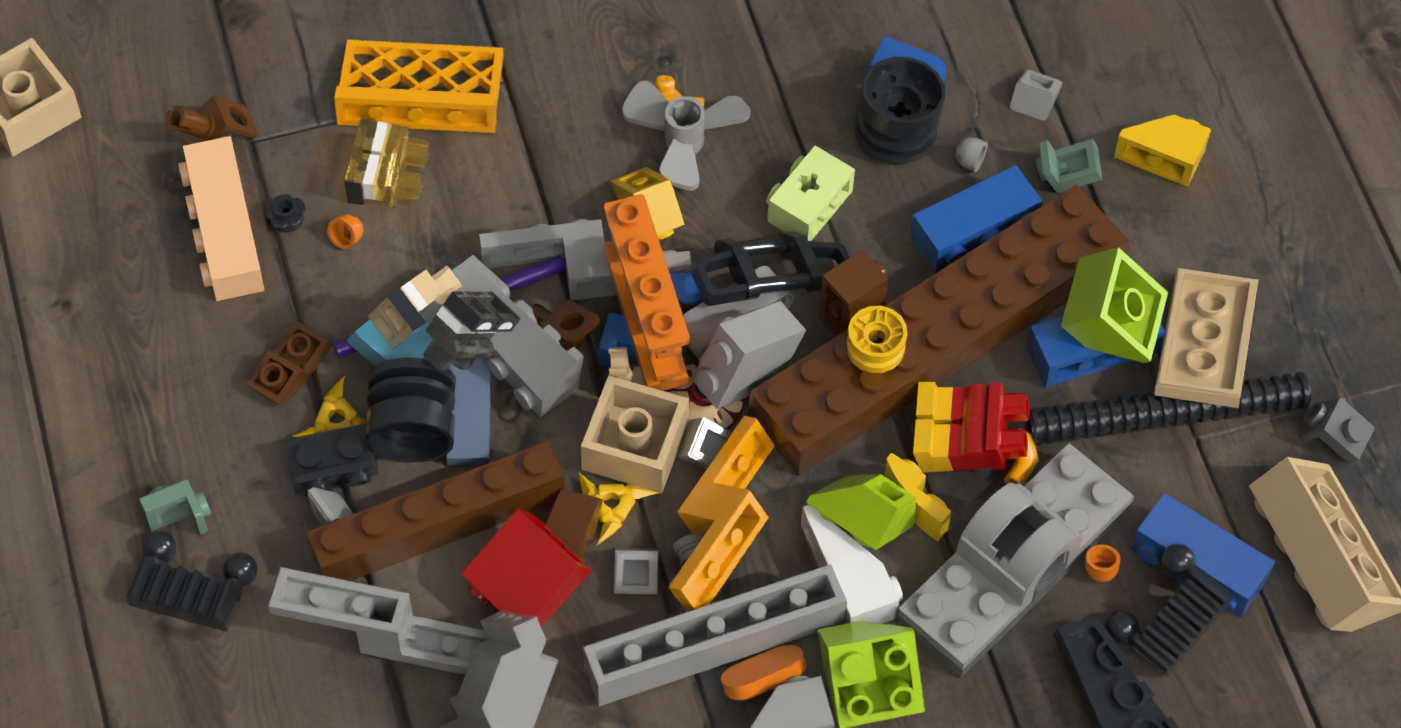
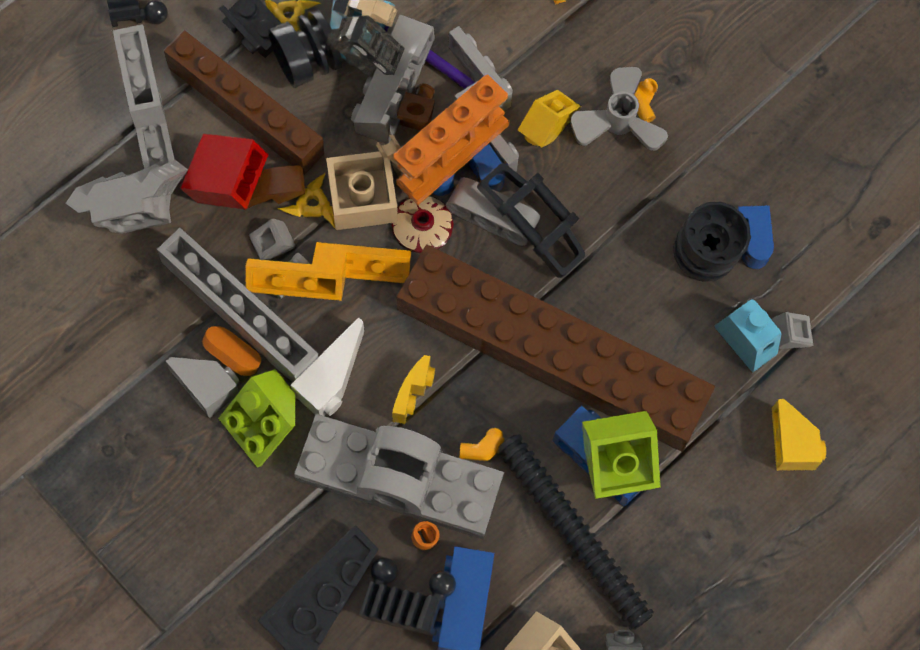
camera: 60 degrees right, 10 degrees up
(327, 506) = (220, 40): light grey slope -> none
(471, 415) = (329, 89): sand blue tile -> none
(702, 442) = (385, 236): light grey slope -> none
(747, 353) = (452, 227): light grey brick -> none
(810, 193) = (625, 228): yellowish green brick -> none
(850, 288) = (541, 275): reddish brown brick -> none
(867, 507) = (377, 358): lime slope -> none
(870, 325) = (513, 297): yellow wheel -> none
(968, 427) = (482, 410): red hips -> none
(971, 153) = (712, 308): light grey hinge -> none
(972, 217) = (656, 331): blue brick -> none
(1019, 124) = (749, 333): none -> medium azure torso
(1069, 165) = (739, 377): sand green bracket -> none
(1206, 338) = (644, 532): tan tile -> none

